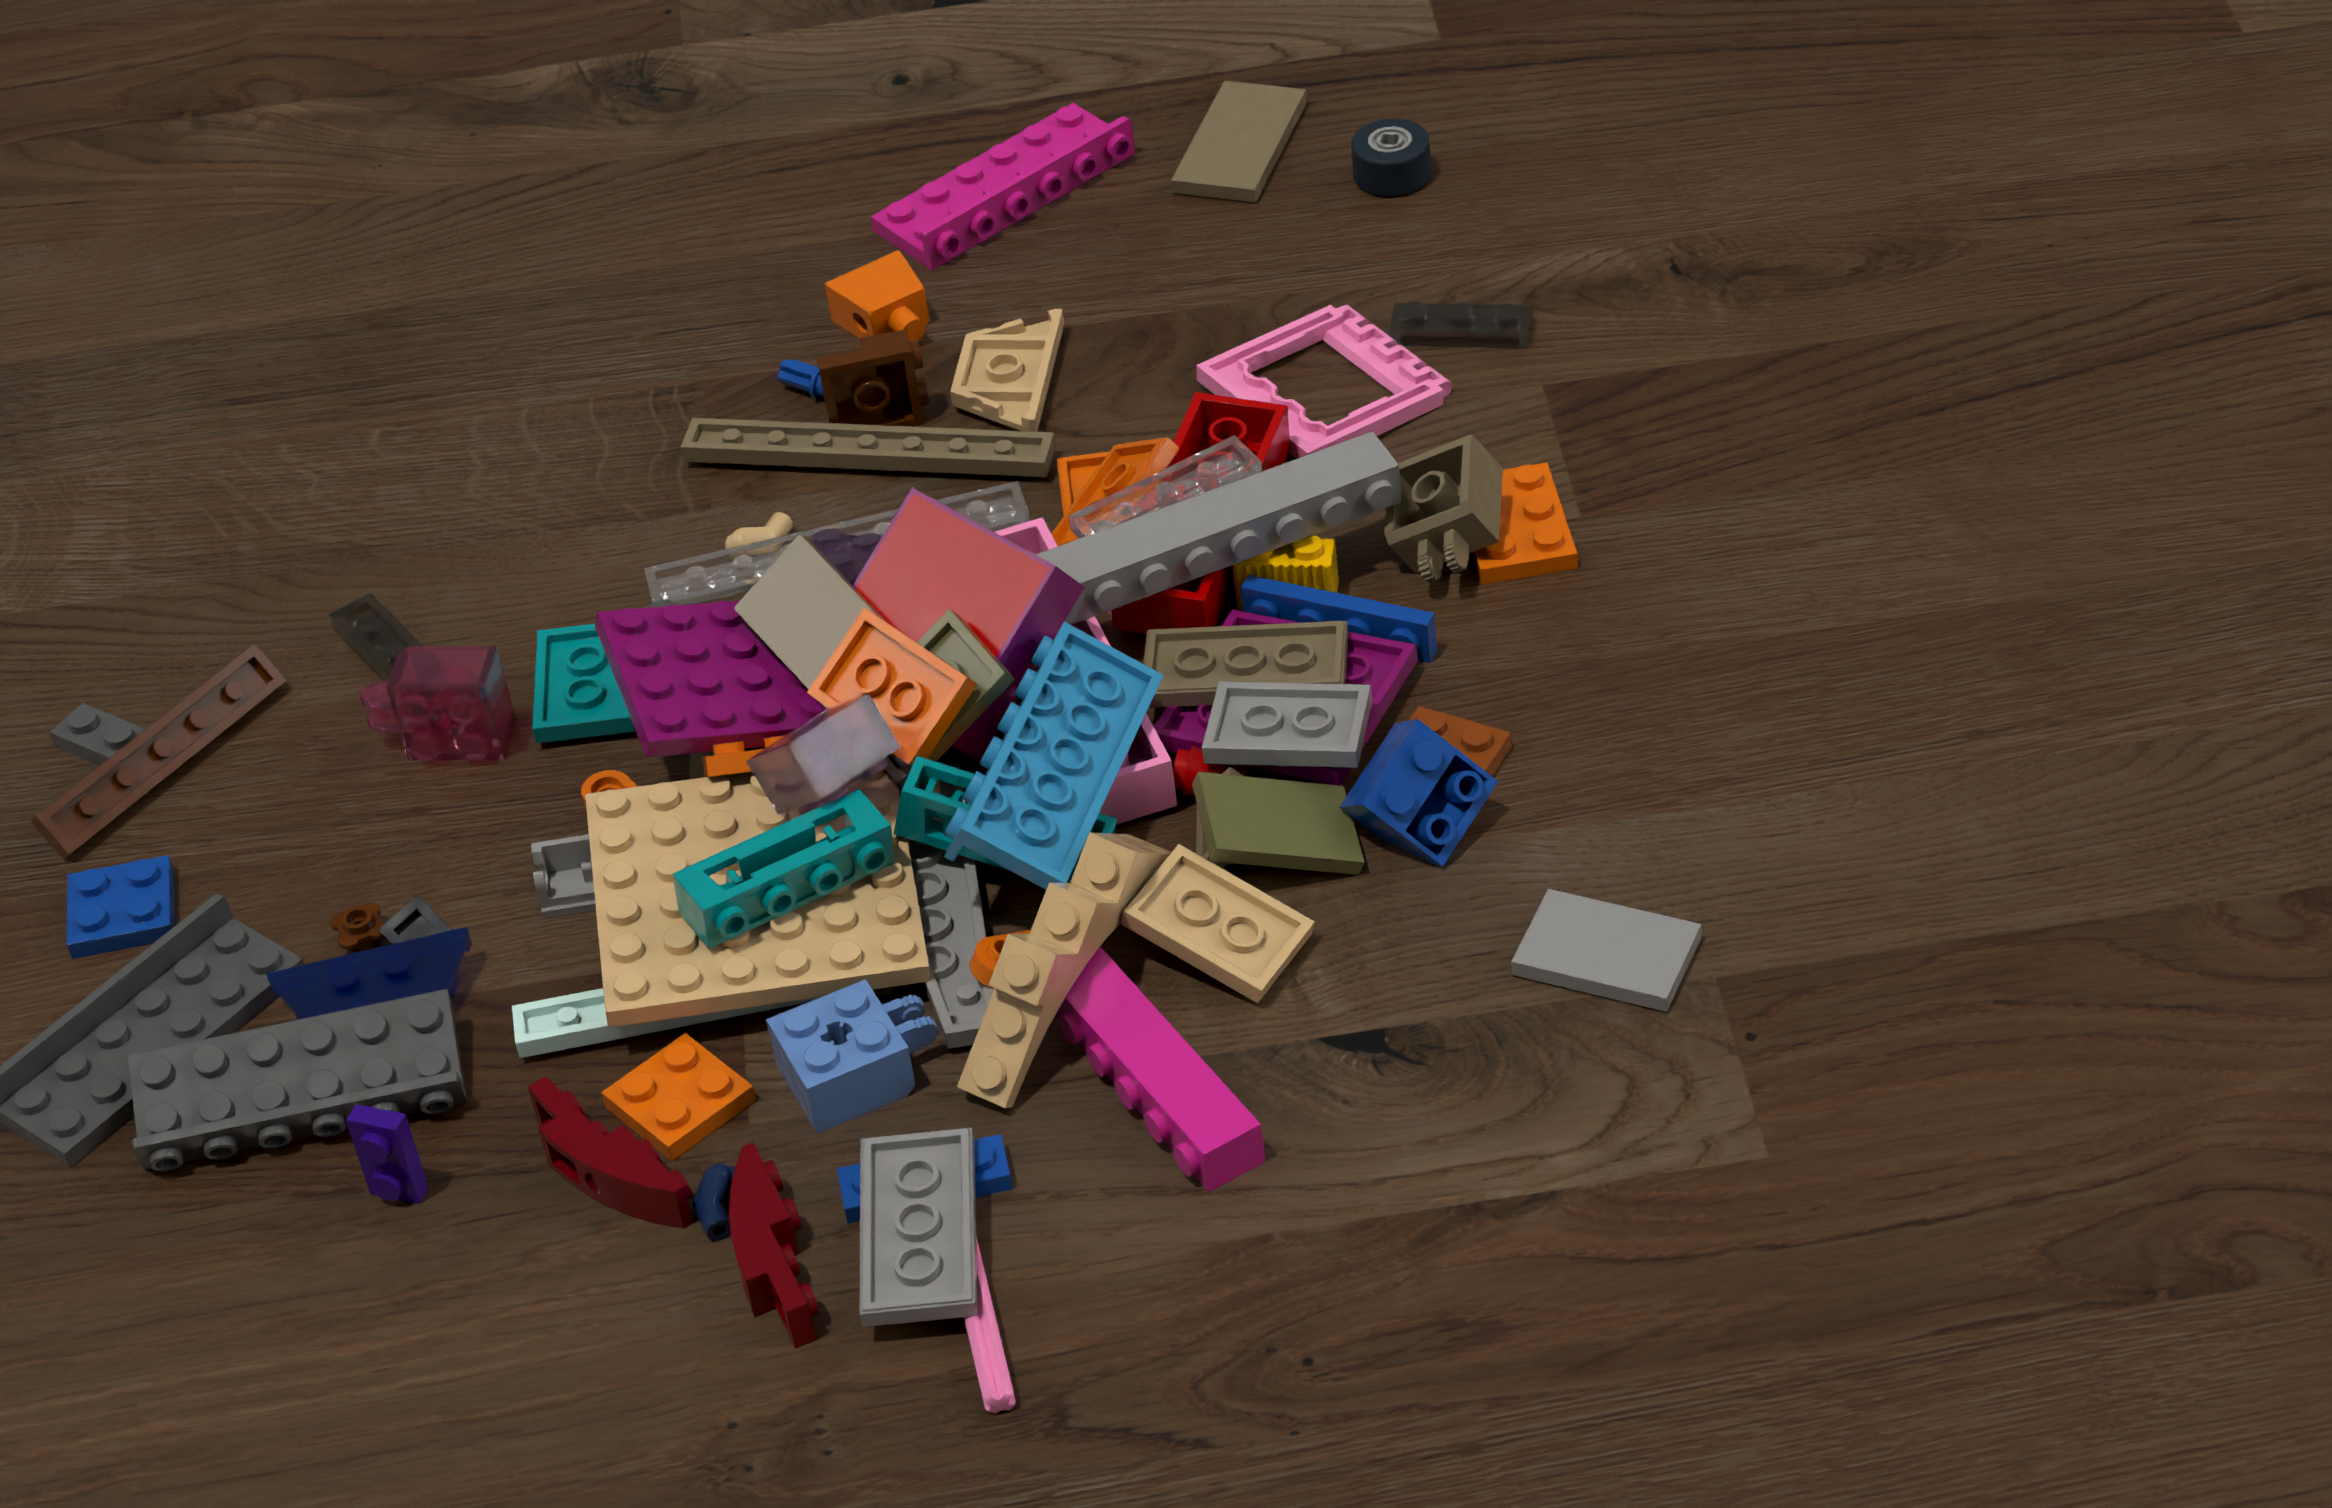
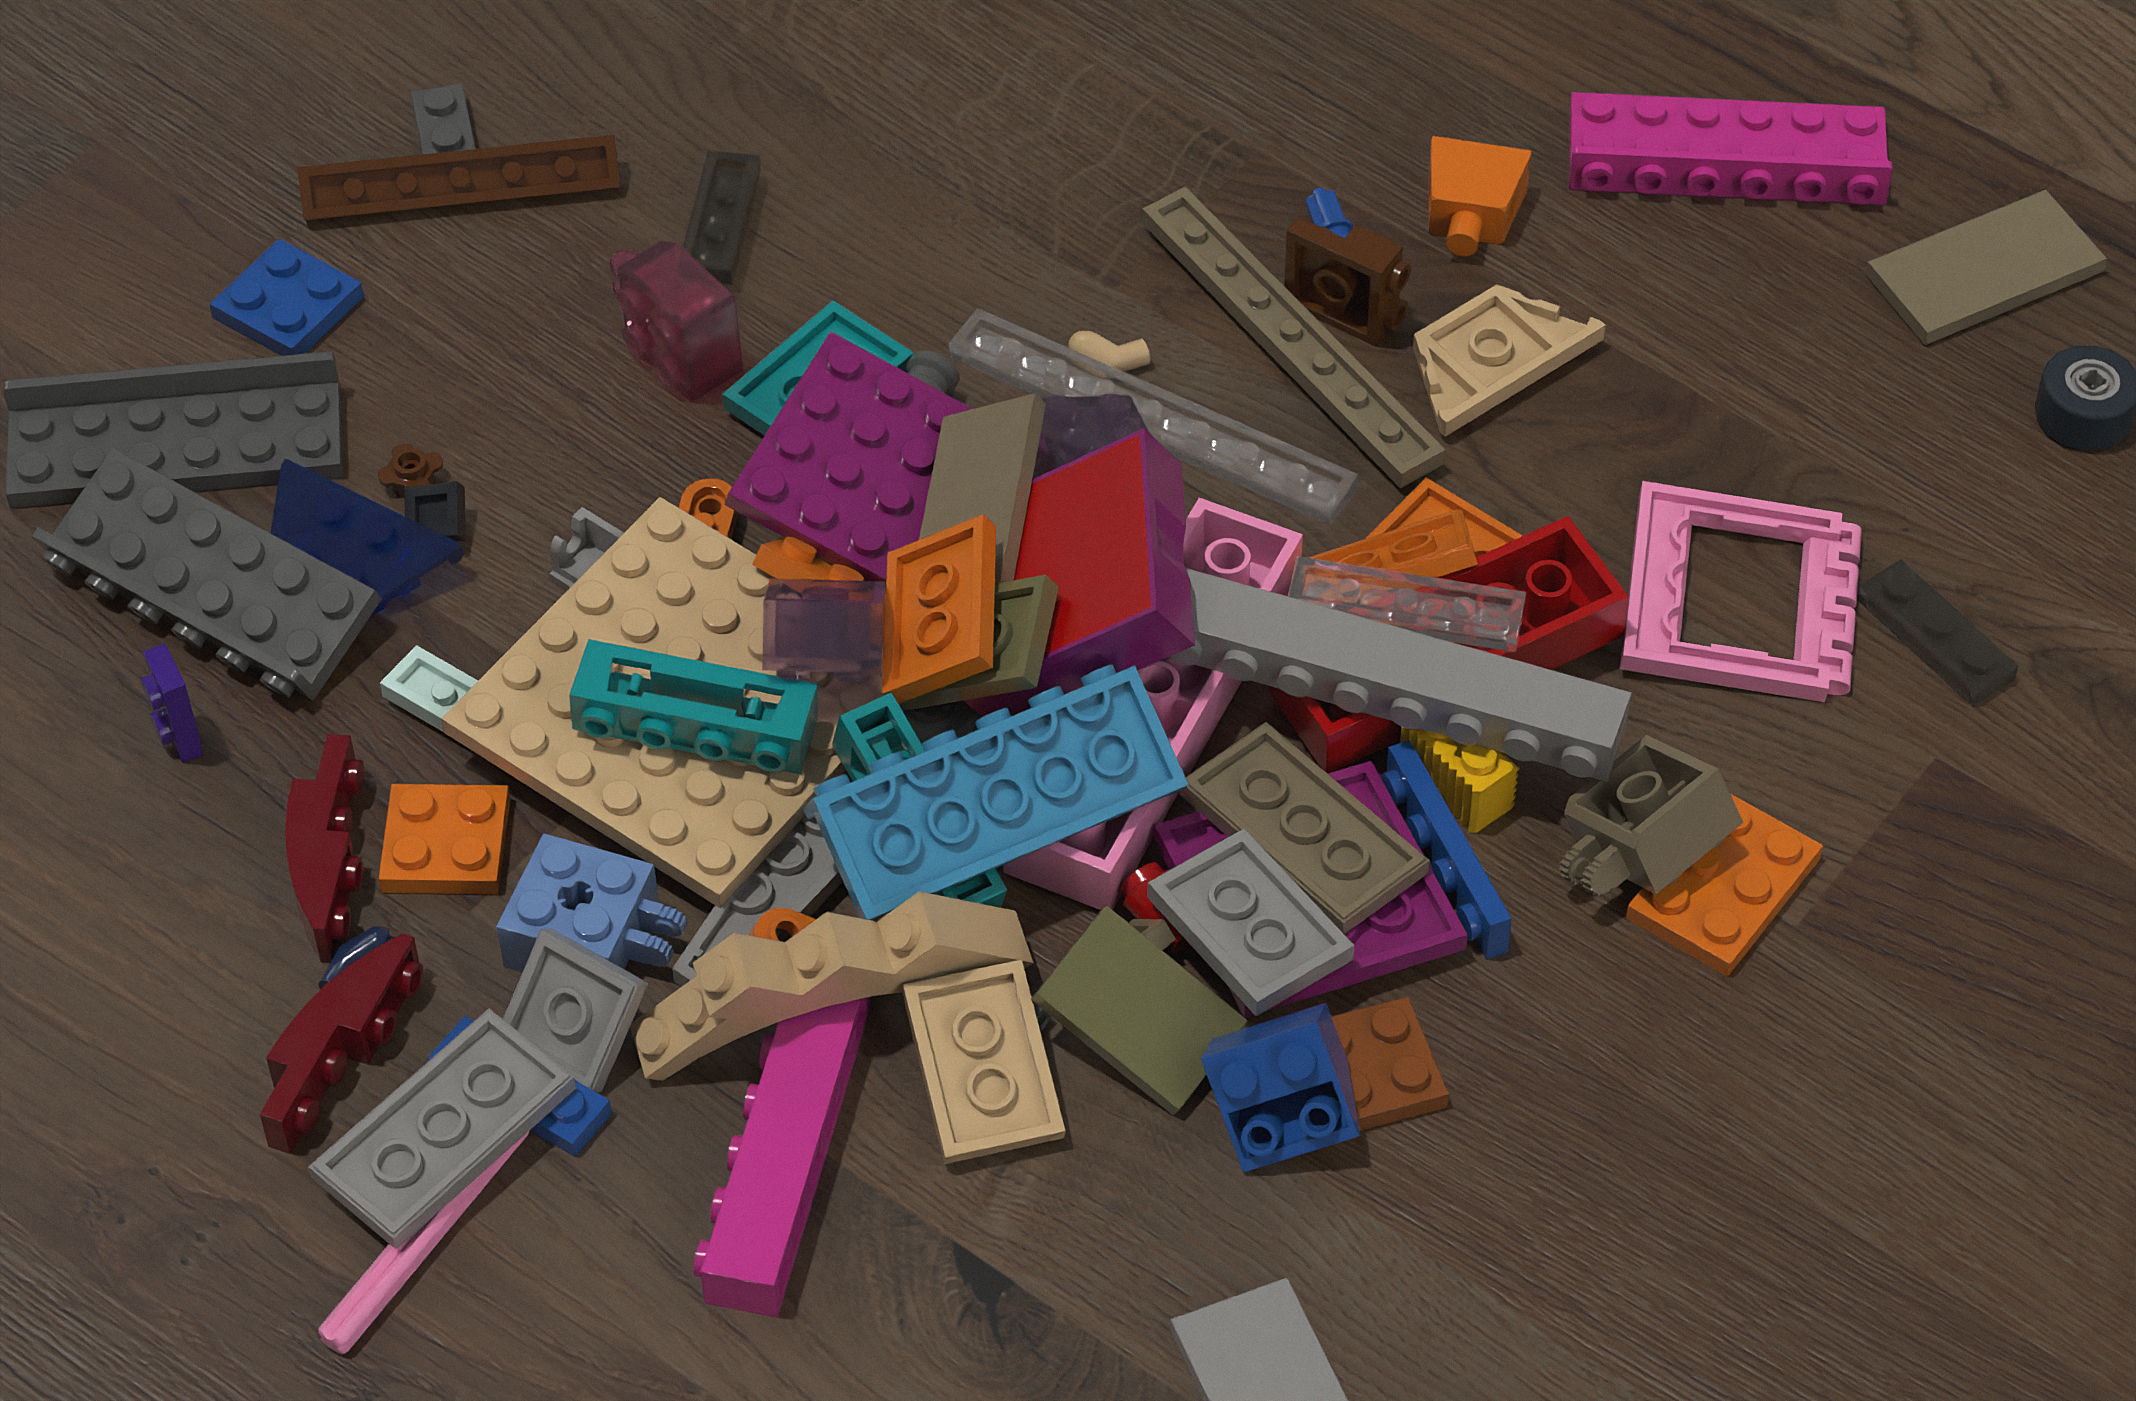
camera: 40 degrees right, 10 degrees up
(914, 1089) = (575, 1006): none -> light grey tile

